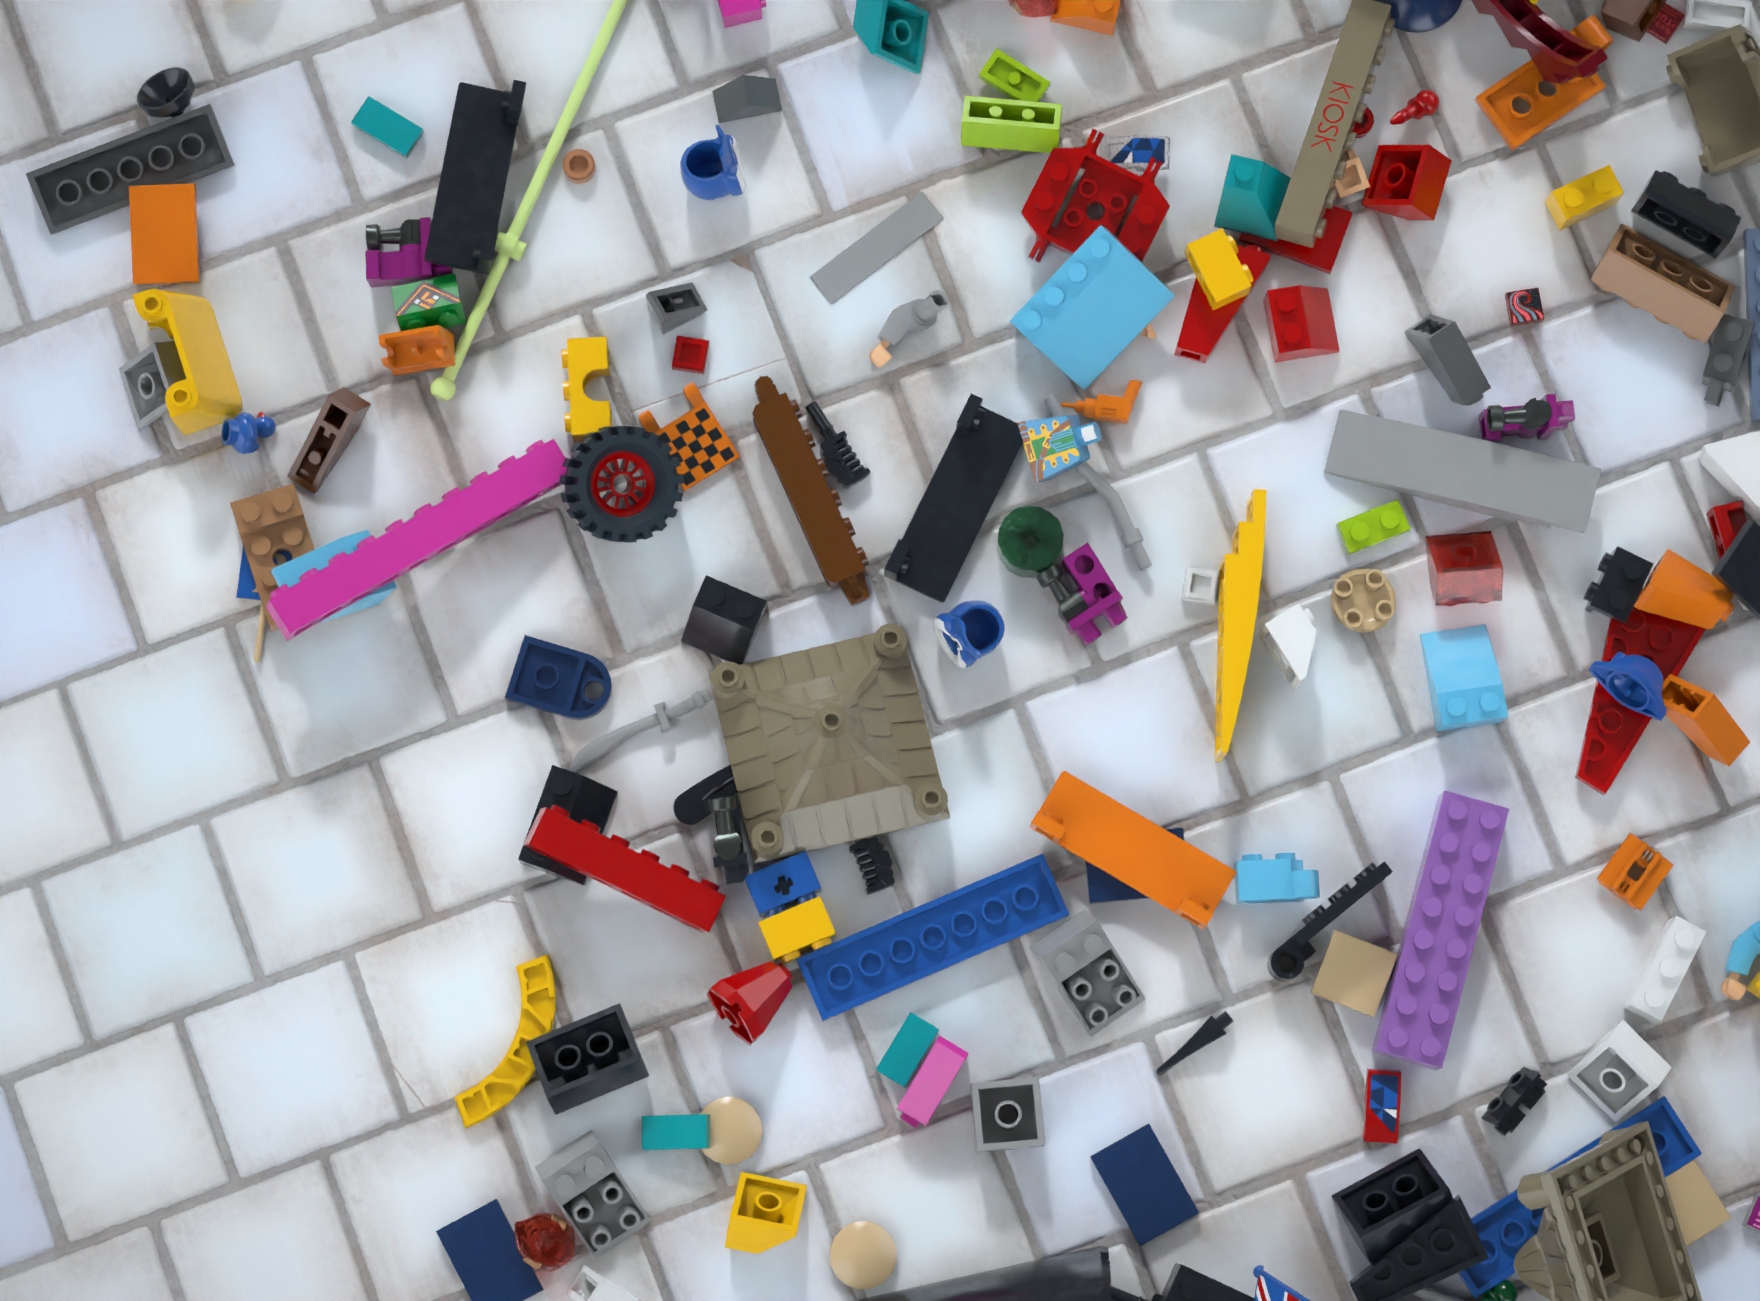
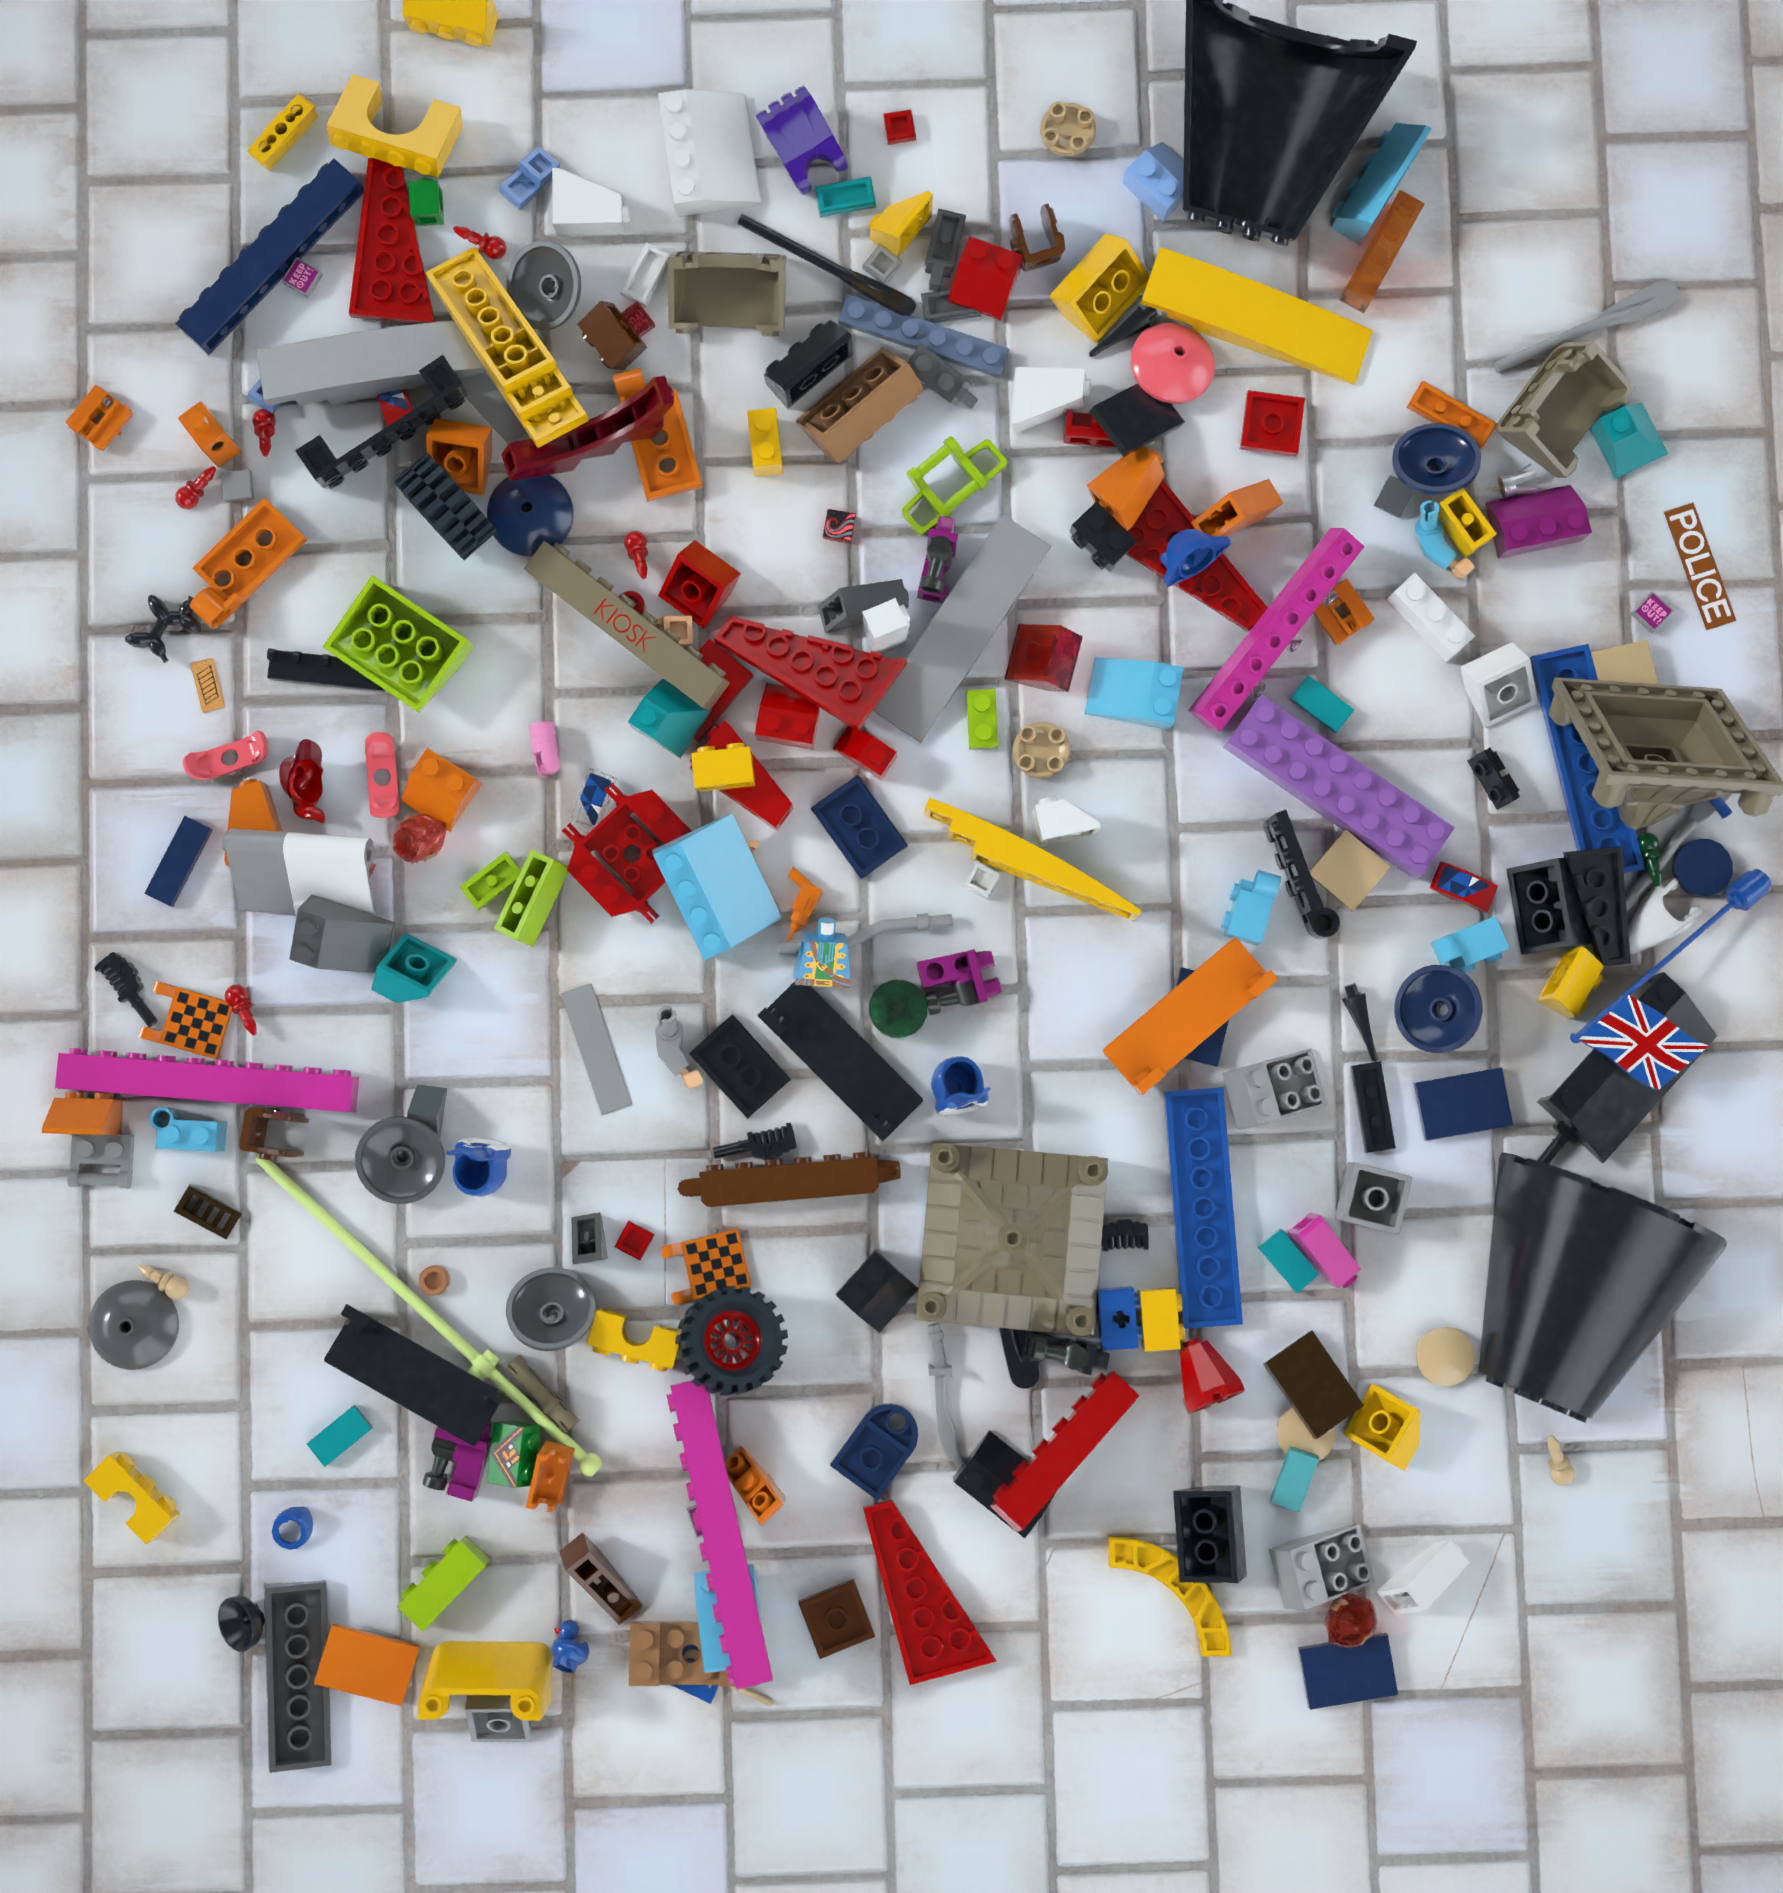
camera: 70 degrees left, 5 degrees up
(272, 281) = (442, 1582): none -> lime brick
(291, 120) = (302, 1517): none -> blue piece
(367, 698) = (836, 1618): none -> reddish brown tile
(401, 789) = (926, 1615): none -> red wing
(478, 561) = (754, 1485): none -> orange slope
(493, 325) = (542, 1394): none -> dark tan pin
(600, 280) = (547, 1294): none -> dark grey dish
(675, 75) = (396, 1178): none -> dark grey dish
(784, 1118) = (1313, 1384): none -> dark brown tile
(910, 400) = (740, 1066): none -> black tile
(1106, 1087) = (1372, 1107): none -> black tile
(1174, 84) = (544, 748): none -> bright pink hinge
(1209, 437) = (859, 827): none -> dark blue tile
(1235, 1102) = (1419, 1007): none -> dark blue dish
(1291, 417) = (866, 752): none -> red slope
(1319, 1131) = (1471, 945): none -> medium azure hinge
(1319, 1258) = (1572, 982): none -> yellow slope
(1360, 337) = (820, 670): none -> red wing
(1432, 385) = (886, 626): none -> white brick
(1525, 885) = (1321, 704): none -> teal tile
(1588, 804) = (1277, 629): none -> dark pink piece
(1627, 435) = (977, 481): none -> lime bar

